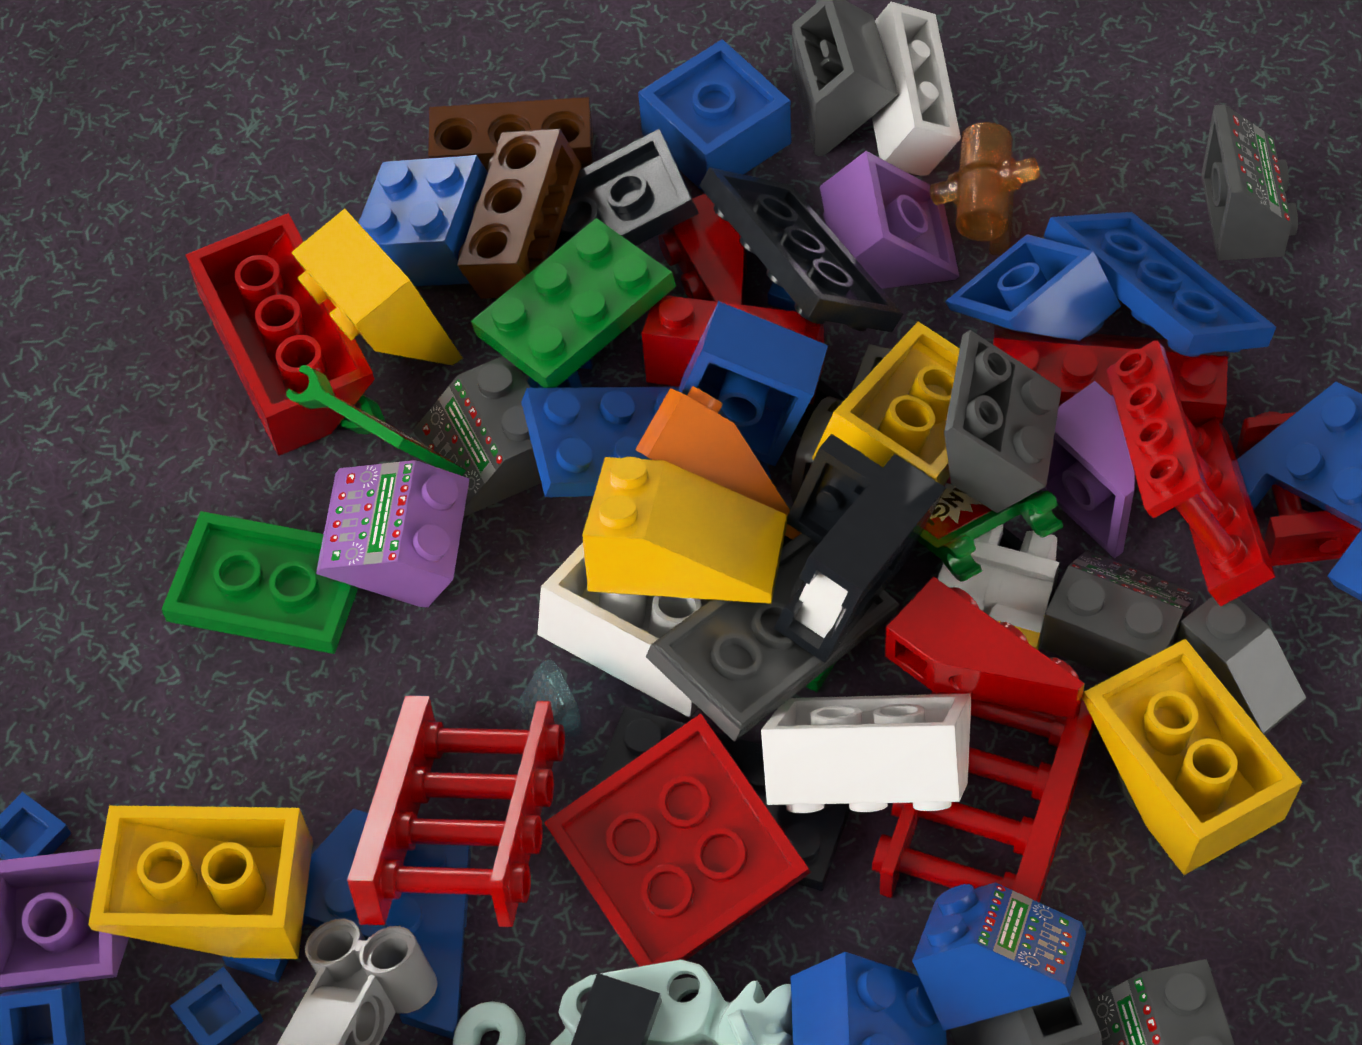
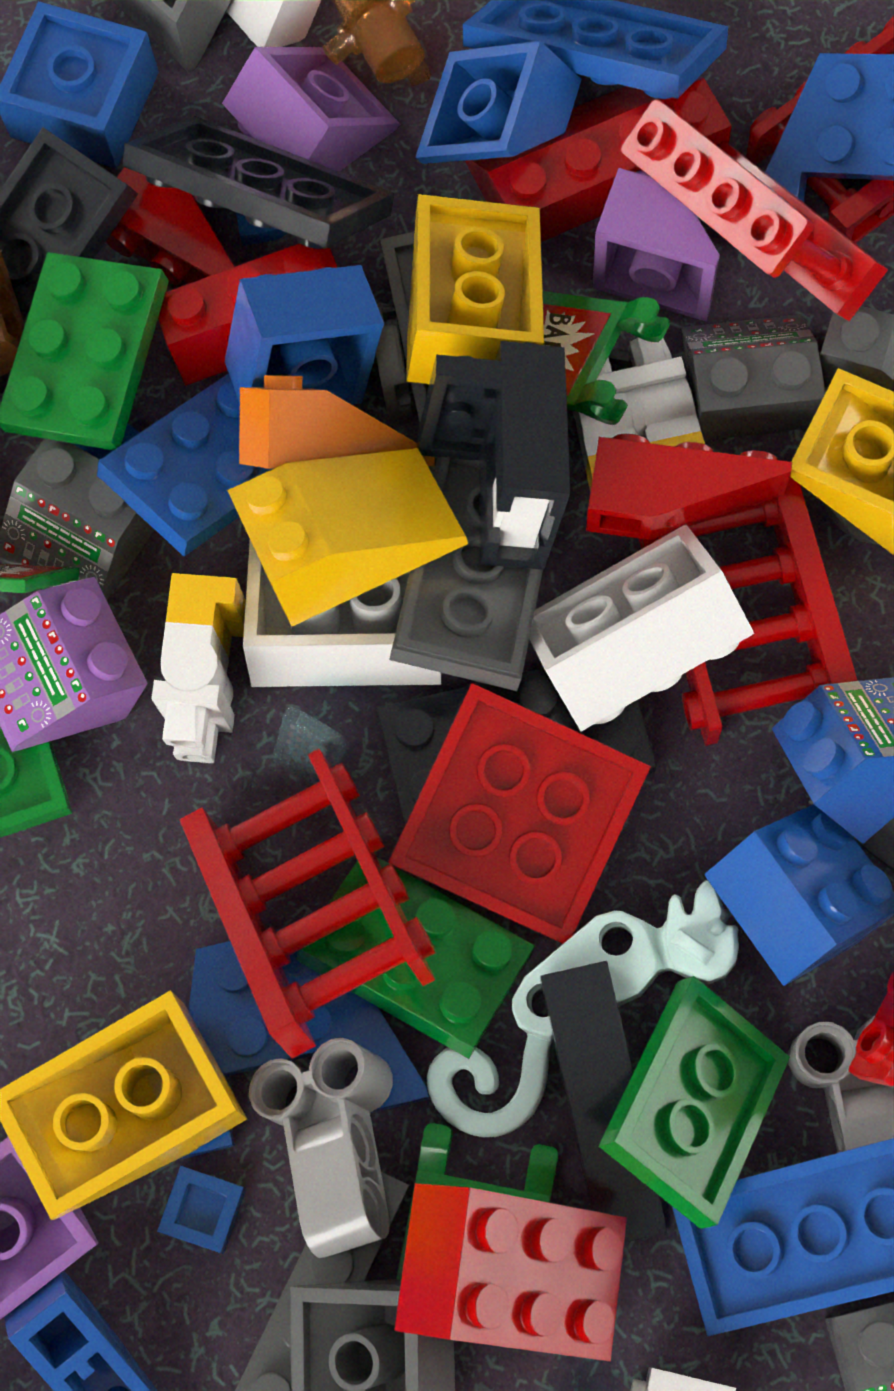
camera: 30 degrees left, 15 degrees up
(499, 588) = (194, 662): none -> white hips
(552, 936) = (471, 966): none -> green plate
(998, 425) = (574, 259): dark grey slope -> none

